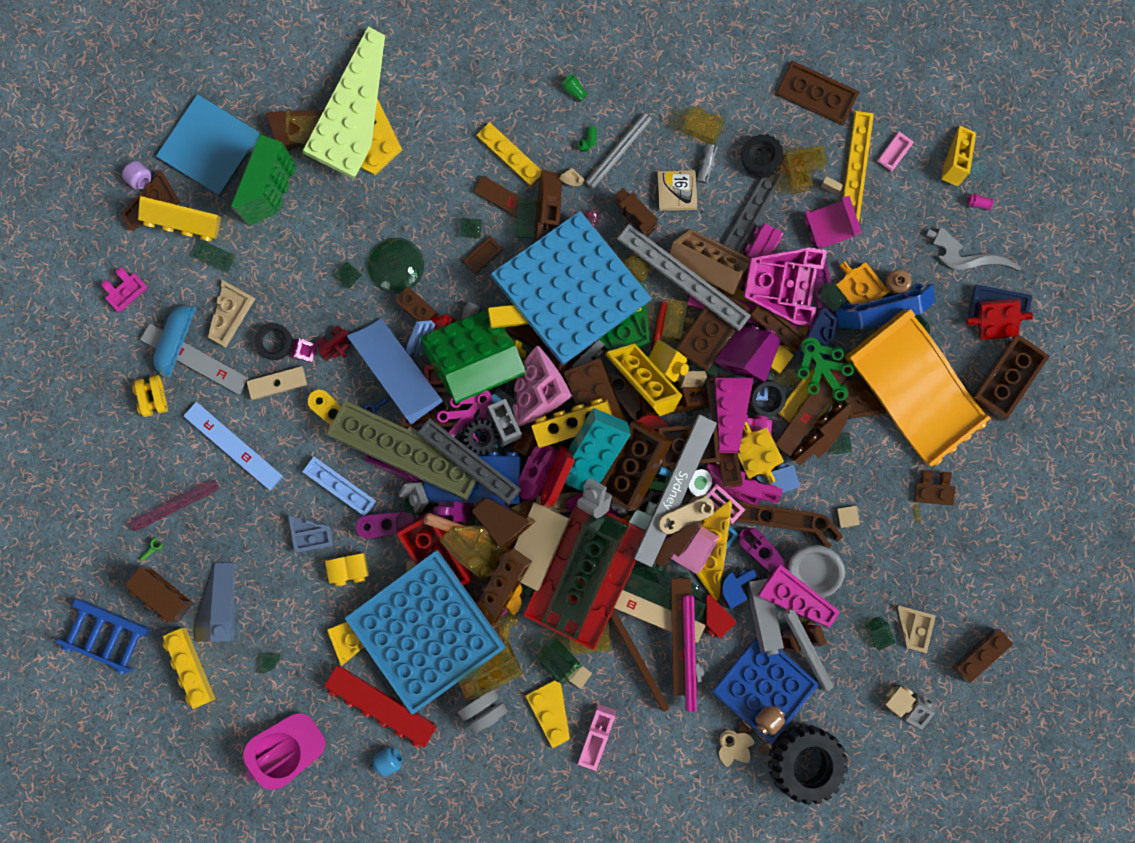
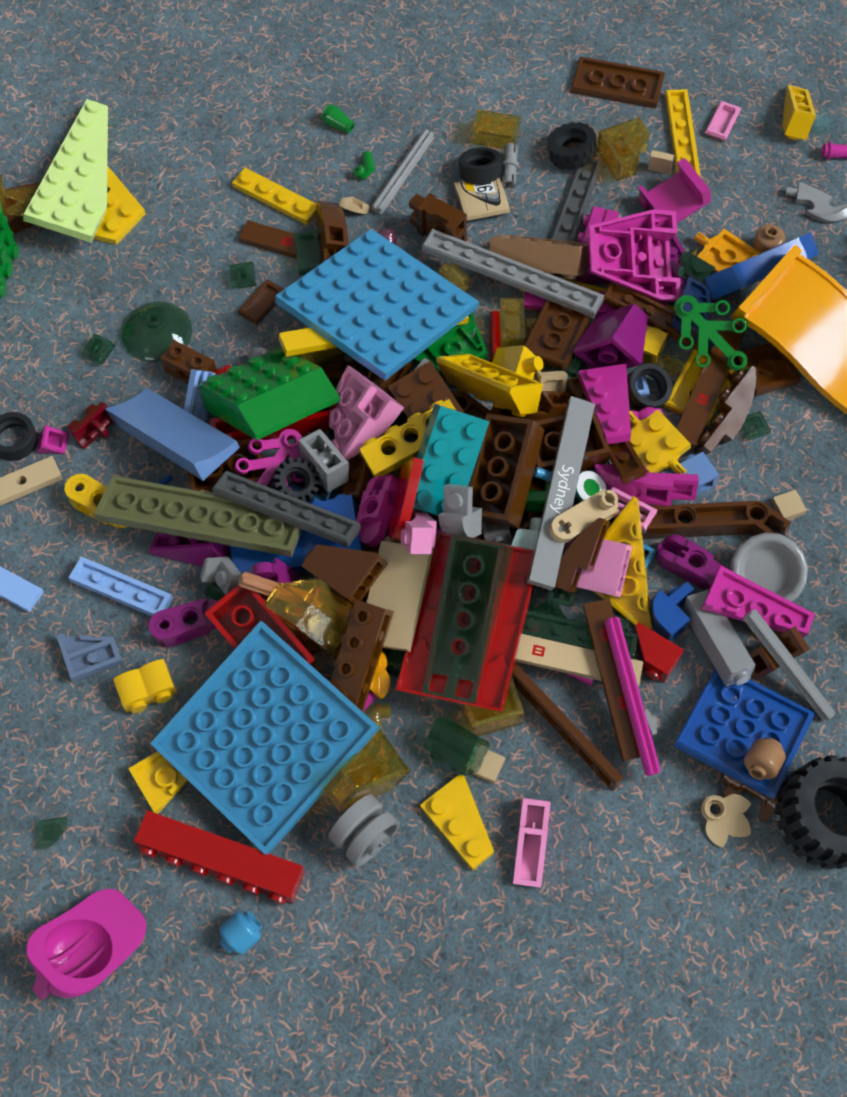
camera: 10 degrees left, 20 degrees down
(562, 510) = (419, 533): none -> bright pink slope
(682, 173) = (470, 167): none -> black tyre

